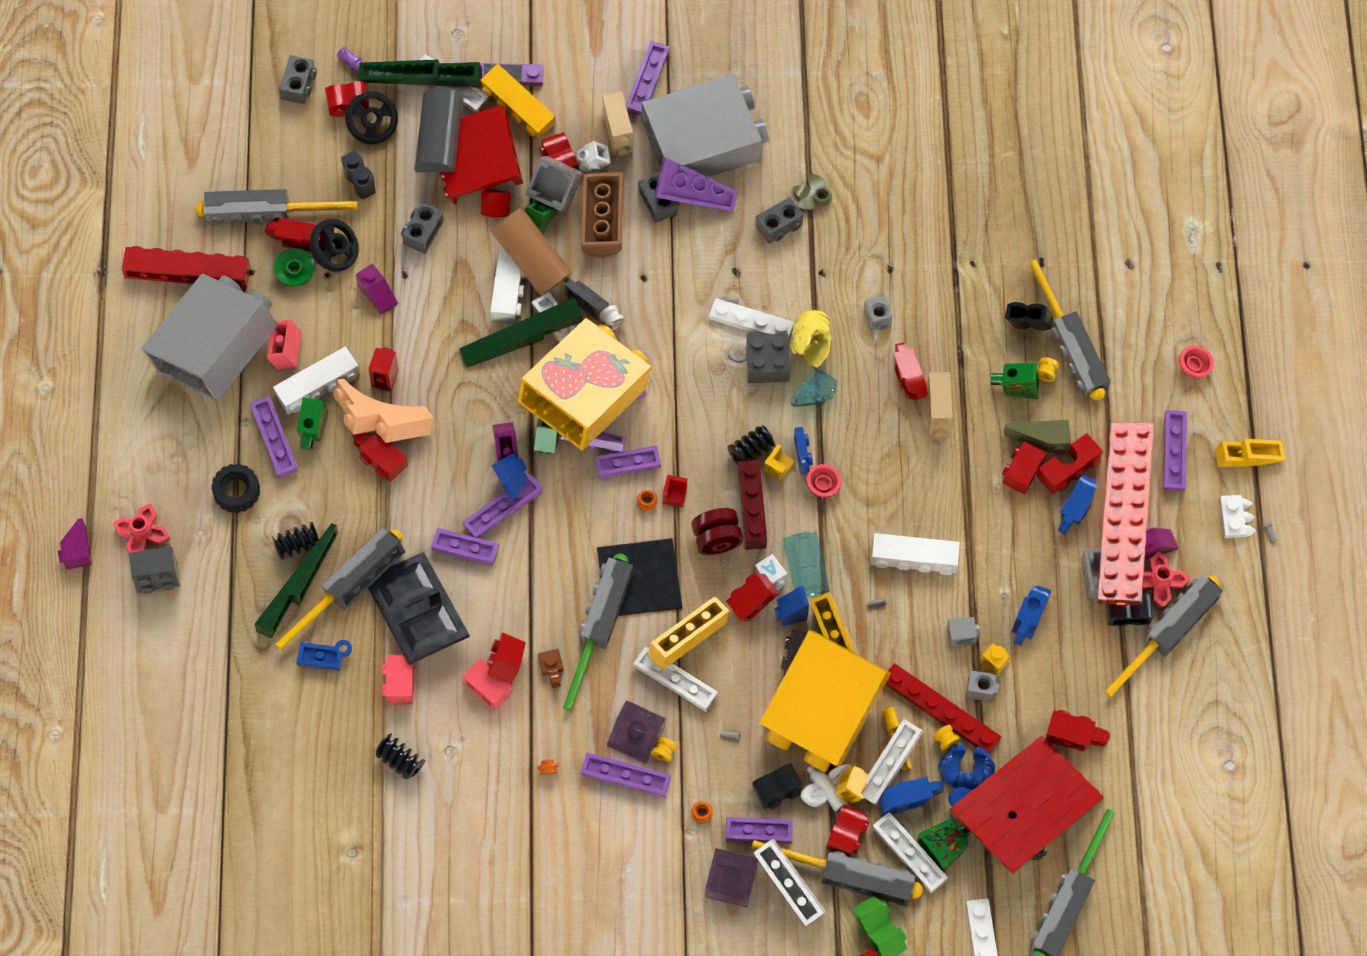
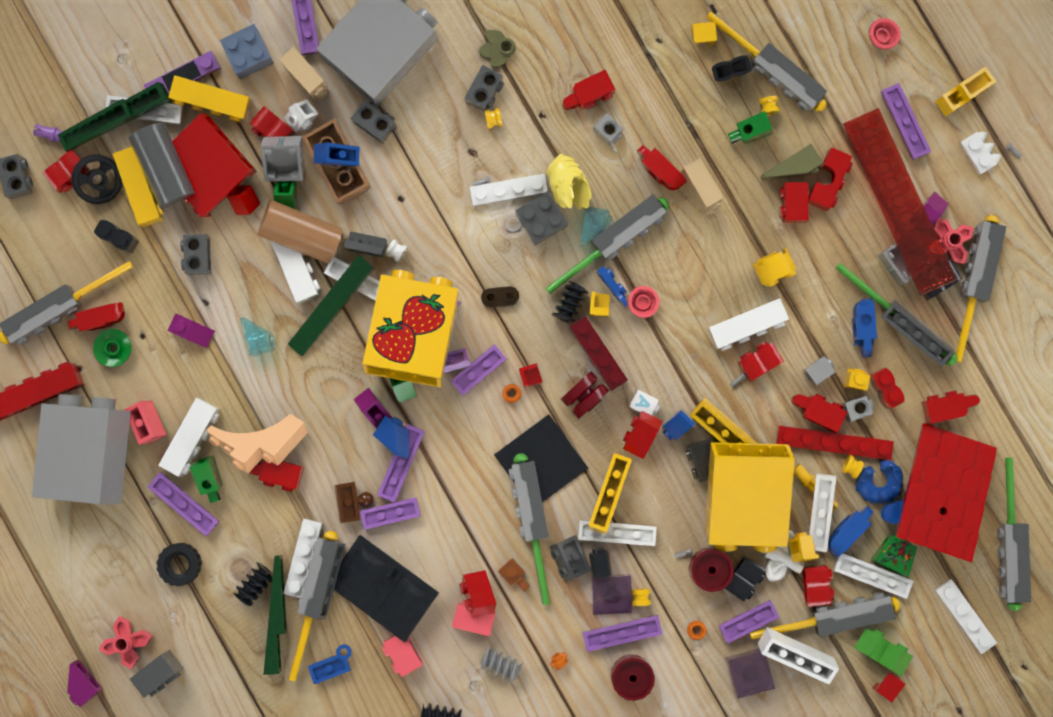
camera: 25 degrees left, 20 degrees up
(327, 248) = (141, 309): black wheel -> none
(355, 541) = (303, 553): none -> white plate
(383, 369) = (238, 400): red brick -> none
(404, 145) = (137, 188): none -> yellow brick
(431, 515) = (348, 502): none -> reddish brown plate
(434, 328) = (257, 338): none -> clear light blue slope
(487, 741) = (500, 665): none -> light grey piece
(576, 80) = (246, 51): none -> sand blue brick
(606, 200) = (336, 154): none -> blue slope
(615, 678) = (570, 558): none -> dark grey bracket
(615, 805) = (632, 665): none -> dark red wheel
(643, 690) = (600, 563): none -> black brick
(686, 409) = (500, 297): none -> dark brown plate
(688, 186) = (396, 102): medium lavender wing -> none
(748, 744) = (699, 568): none -> dark red wheel
(773, 250) = (493, 118): none -> yellow wheel
(806, 563) = (665, 378): clear light blue piece -> none
(836, 410) = (620, 234): none -> piece
(878, 272) = (590, 91): none -> red hinge
(908, 594) = (760, 361): none -> red brick
(942, 669) = (821, 412): none -> red hinge
(970, 512) = (773, 267): none -> yellow brick
(1019, 274) = (704, 33): none -> yellow panel
(1021, 681) = (889, 393): none -> red brick
(1075, 632) = (908, 324): none -> dark grey piece
(1077, 503) = (853, 211): blue piece -> none

